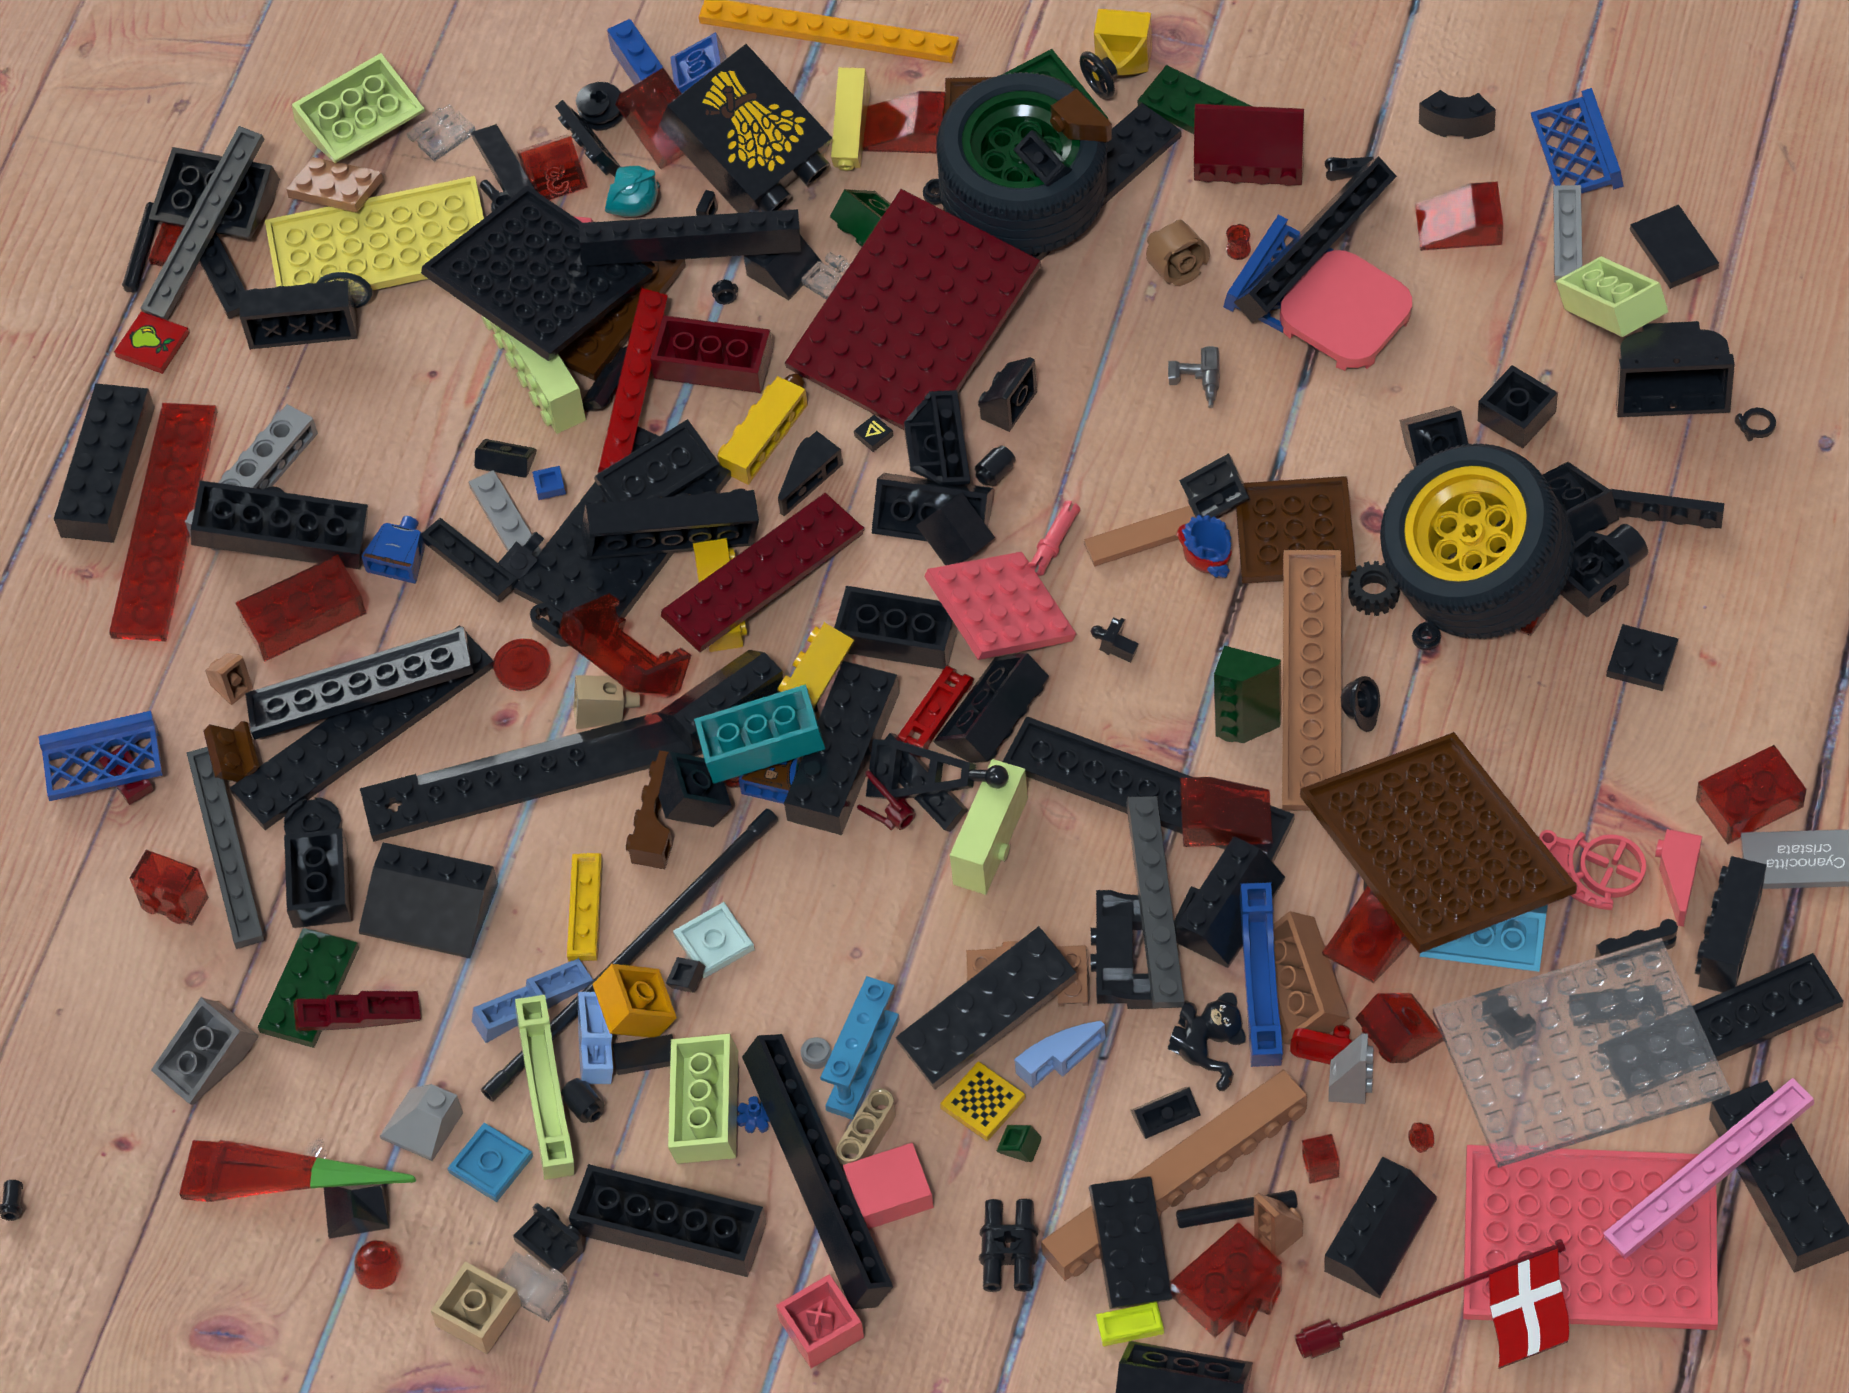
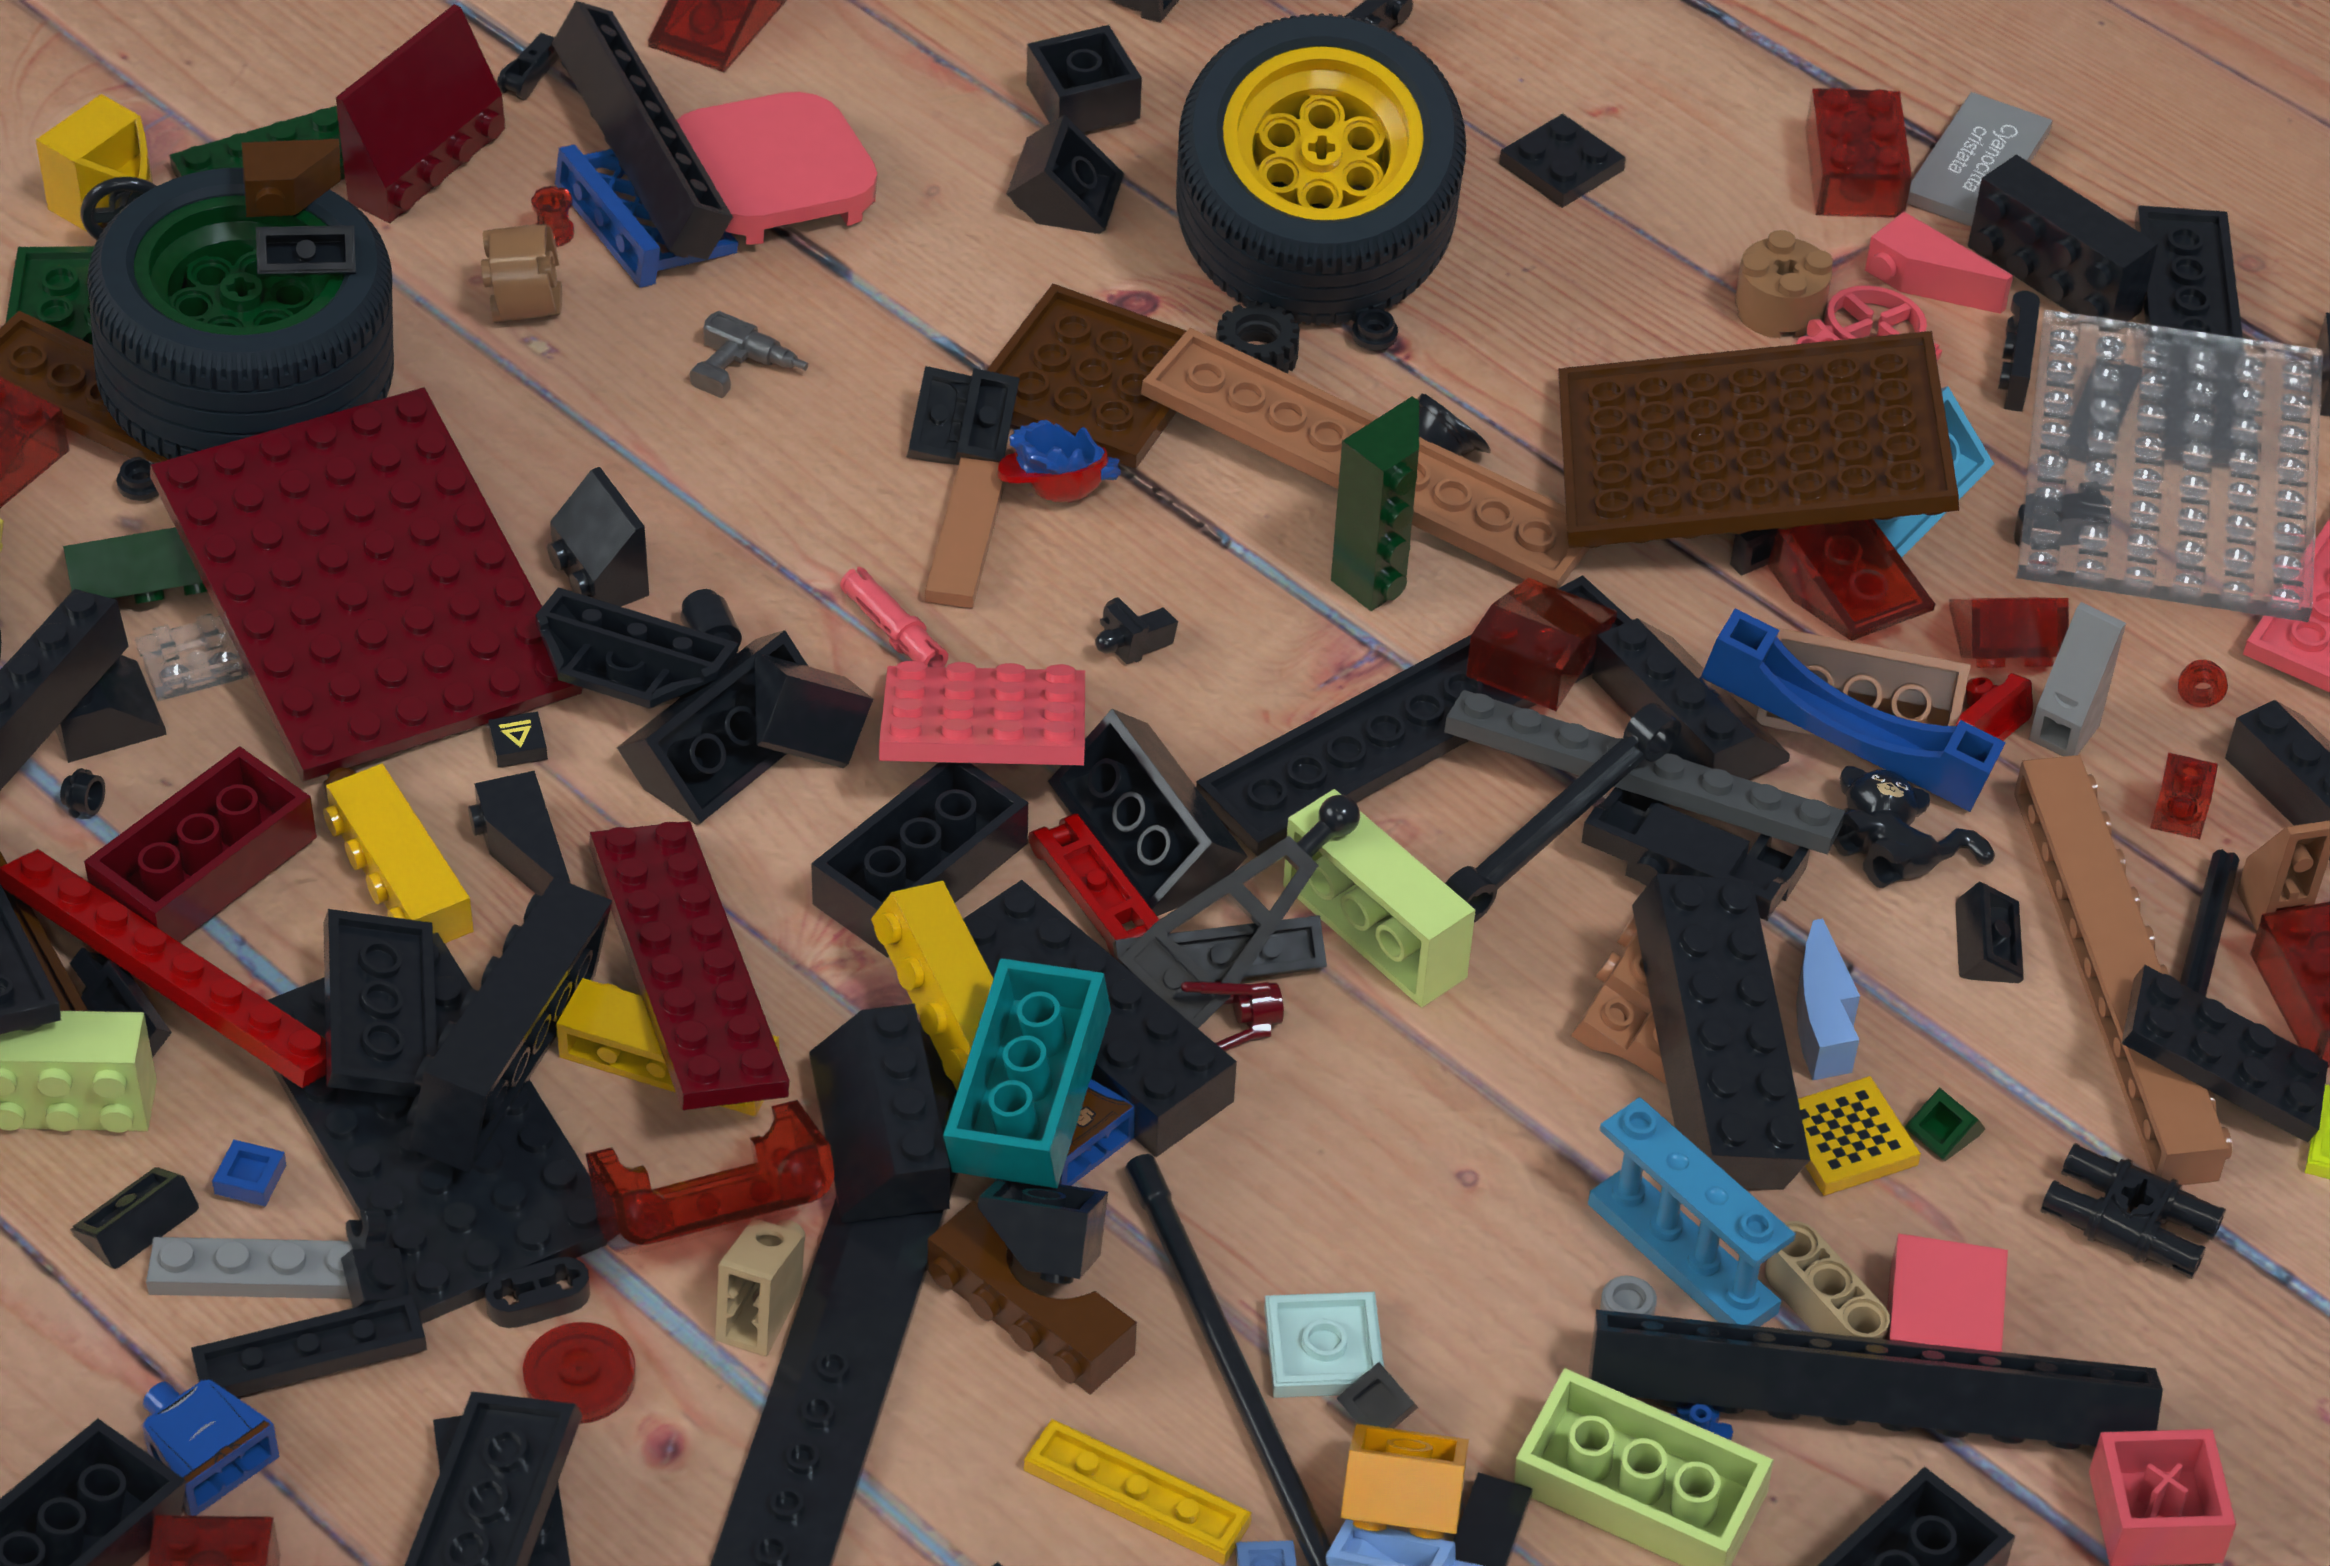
camera: 70 degrees left, 10 degrees down
(1157, 886) = (1646, 737): none -> black piece
(1600, 805) = (1782, 285): none -> medium nougat brick

